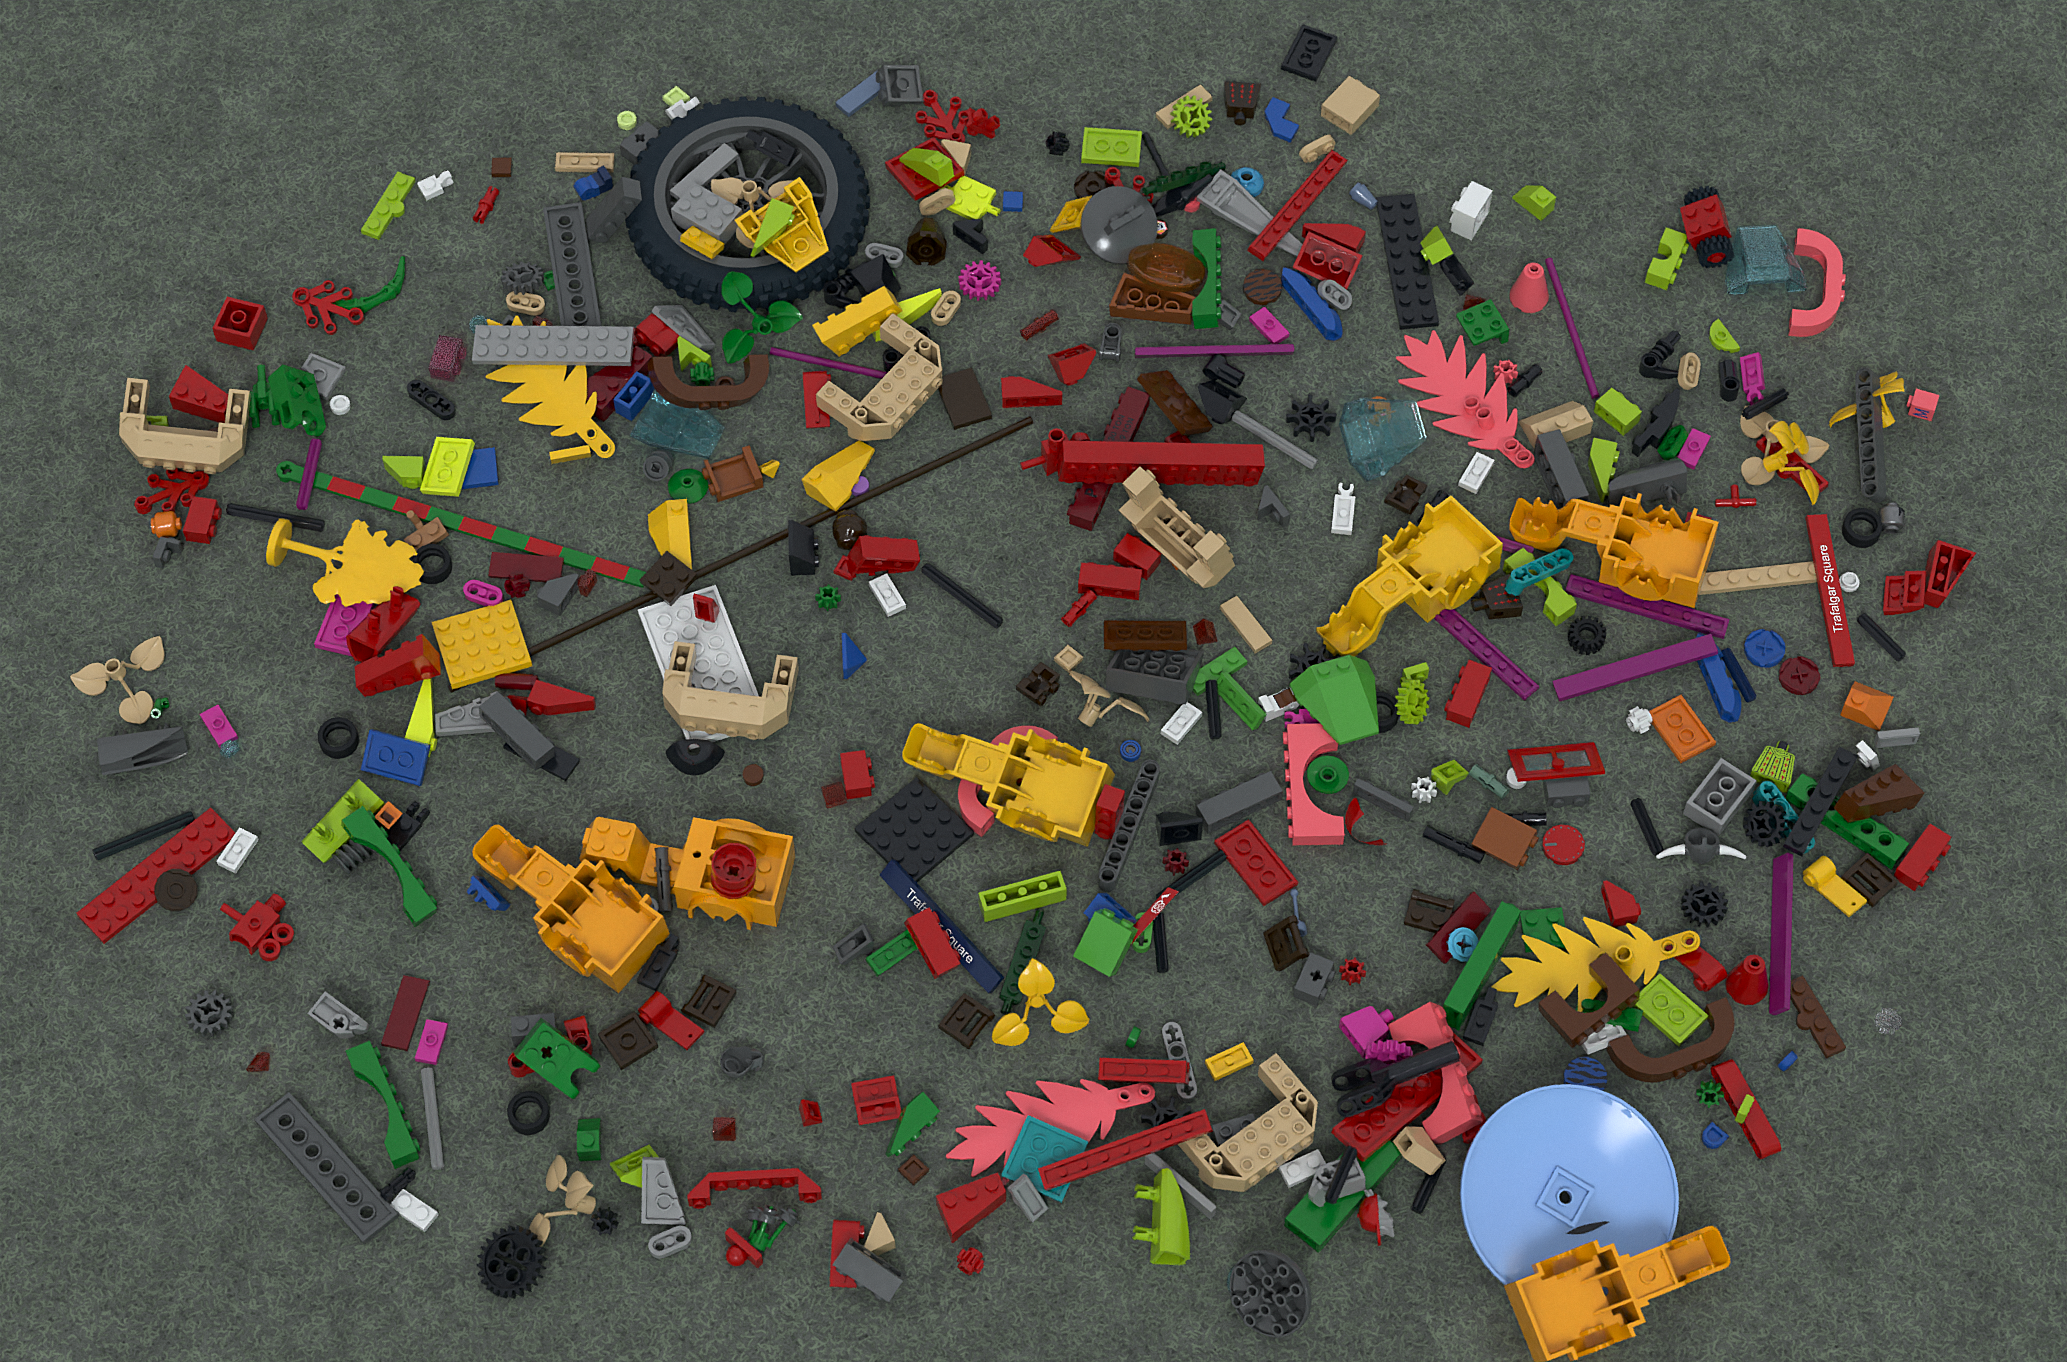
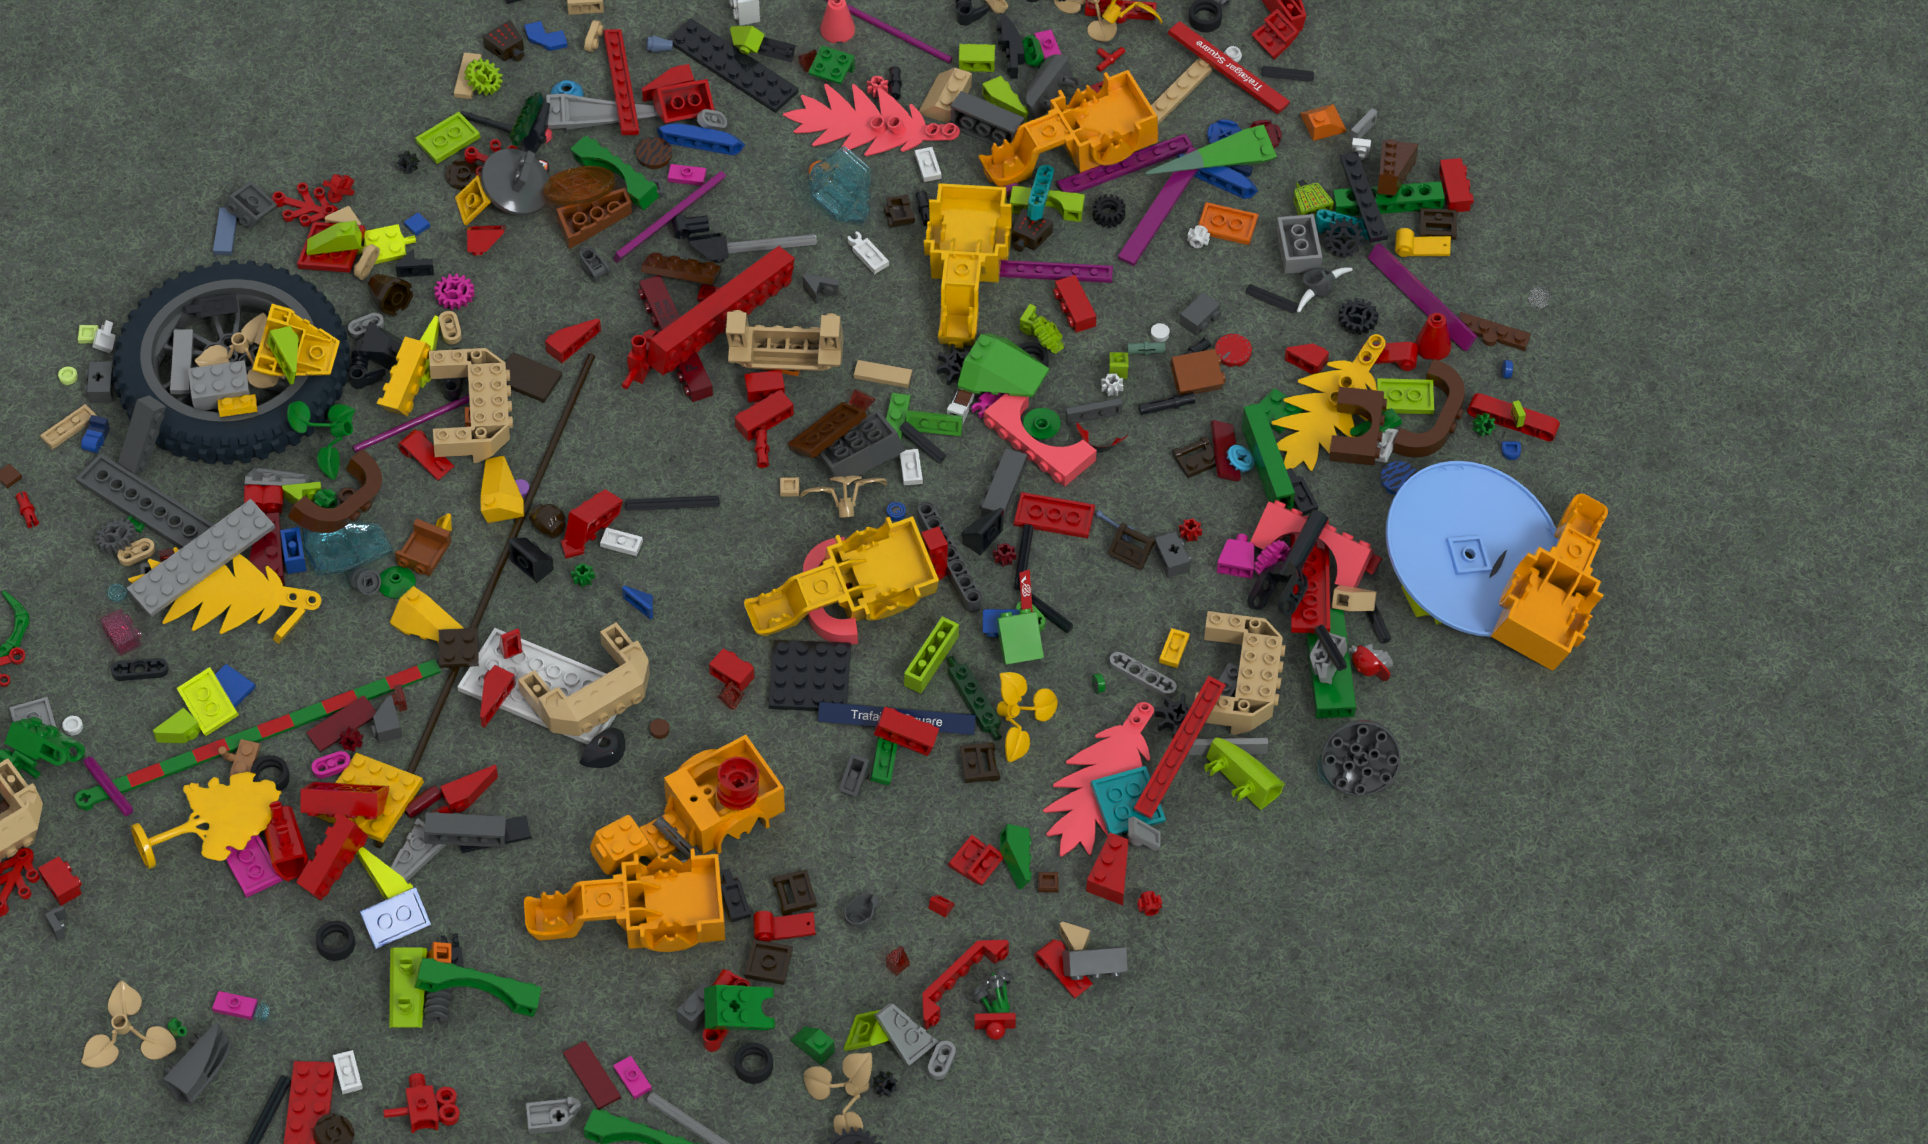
camera: 45 degrees left, 5 degrees down
(166, 524) = (36, 904): orange head -> none
(274, 516) = (111, 837): black axle -> none
(454, 628) = (347, 799): none -> red slope
(486, 891) = (572, 951): blue plate -> none
(652, 638) = (496, 688): none -> red slope
(1039, 324) = (528, 289): clear red pin -> none
(1039, 684) = (790, 515): dark brown cylinder -> none
(1072, 363) = (580, 296): red slope -> none
(1144, 1071) = (1132, 694): red brick -> none
(1301, 1168) = (1291, 673): white plate -> none
(1311, 418) = (782, 210): black gear -> none
(1556, 762) = (1176, 302): red door -> none
(1759, 671) = (1241, 148): none -> bright green plate

